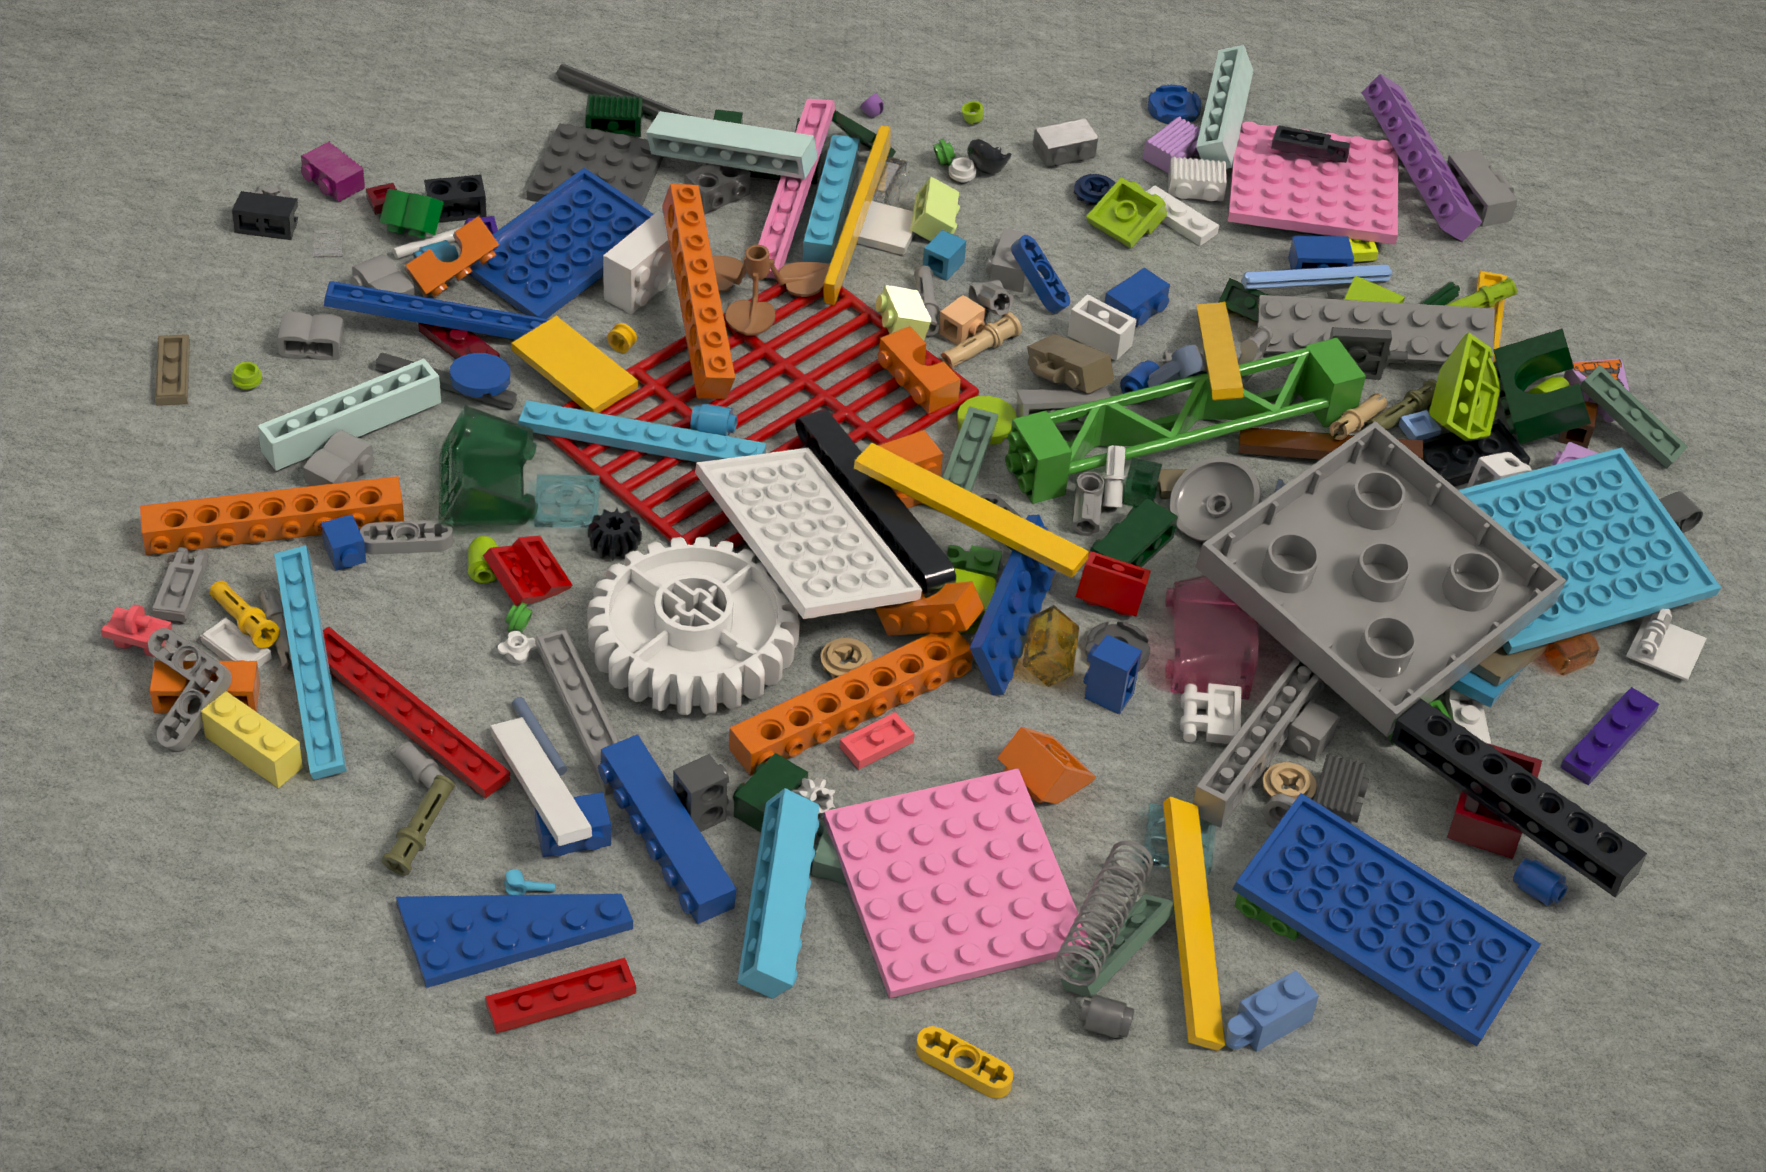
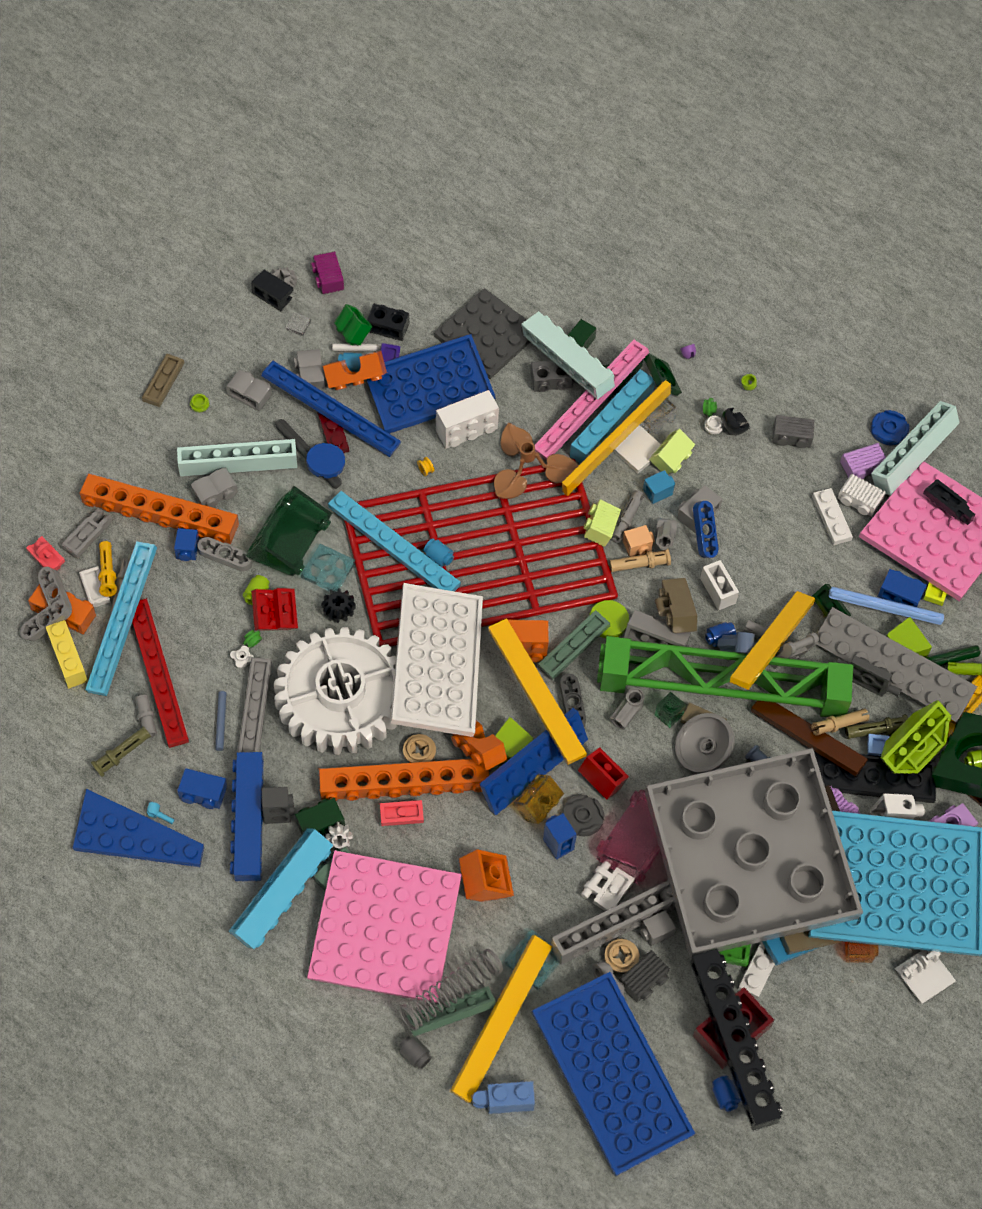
camera: 30 degrees right, 15 degrees up
(376, 196) = (346, 299): dark red plate -> none
(541, 781) = (196, 755): white tile -> none
(560, 995) = (135, 891): red plate -> none
(574, 365) = (383, 477): yellow tile -> none
(600, 86) = (539, 285): dark grey axle -> none
(615, 114) = (520, 295): dark green brick -> none
(698, 292) = (477, 459): orange brick -> none
(876, 502) = (494, 660): black beam -> none
(904, 358) = (584, 583): orange arch -> none
(968, 1076) = (325, 1030): yellow beam -> none
(978, 560) = (534, 719): bright green plate -> none
(1093, 182) = (797, 471): dark blue gear -> none
(1114, 476) = (653, 699): white axle -> none
(1127, 212) = (797, 503): lime plate -> none
(1139, 534) = (639, 747): dark green brick -> none
(1140, 296) = (759, 572): blue brick -> none
(1609, 736) = (844, 1017): dark purple plate -> none

